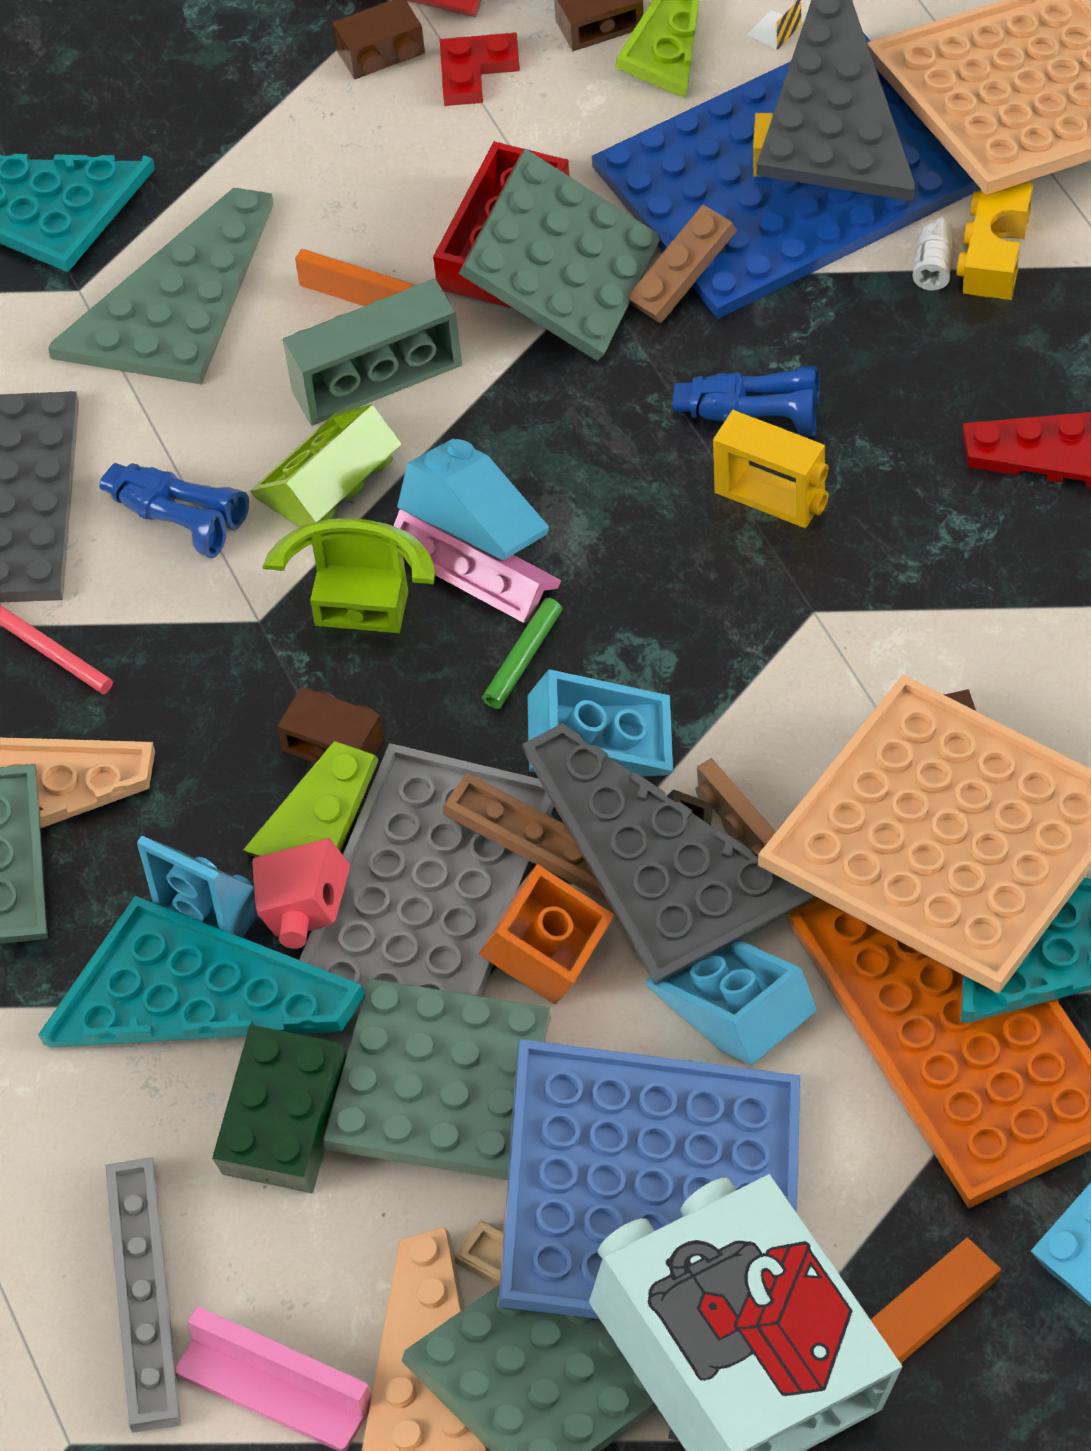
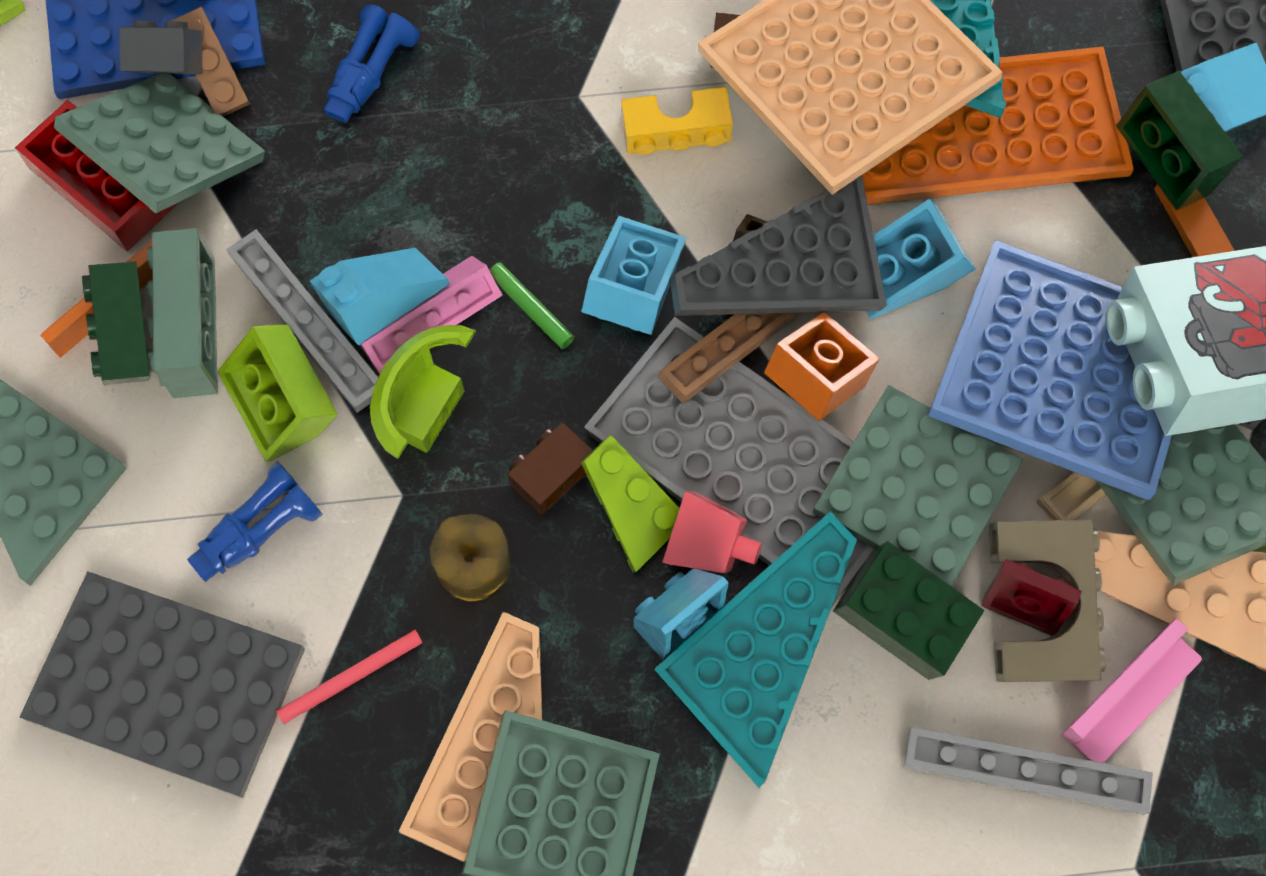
camera: 75 degrees left, 15 degrees up
(201, 692) = (468, 535): none -> clear yellow brick
(327, 286) = (116, 323): none -> dark green brick
(340, 1224) = (1031, 597): none -> dark red plate
(405, 1244) = (1074, 649): none -> dark tan arch
(449, 419) = (305, 318): none -> light grey plate
(662, 209) = (160, 49): none -> dark grey brick
(737, 813) = (759, 202): medium nougat plate -> none
(753, 440) = (452, 68): yellow window -> none
(792, 680) = (650, 130): none -> yellow arch
(1009, 1215) = (1178, 140): none -> dark green brick

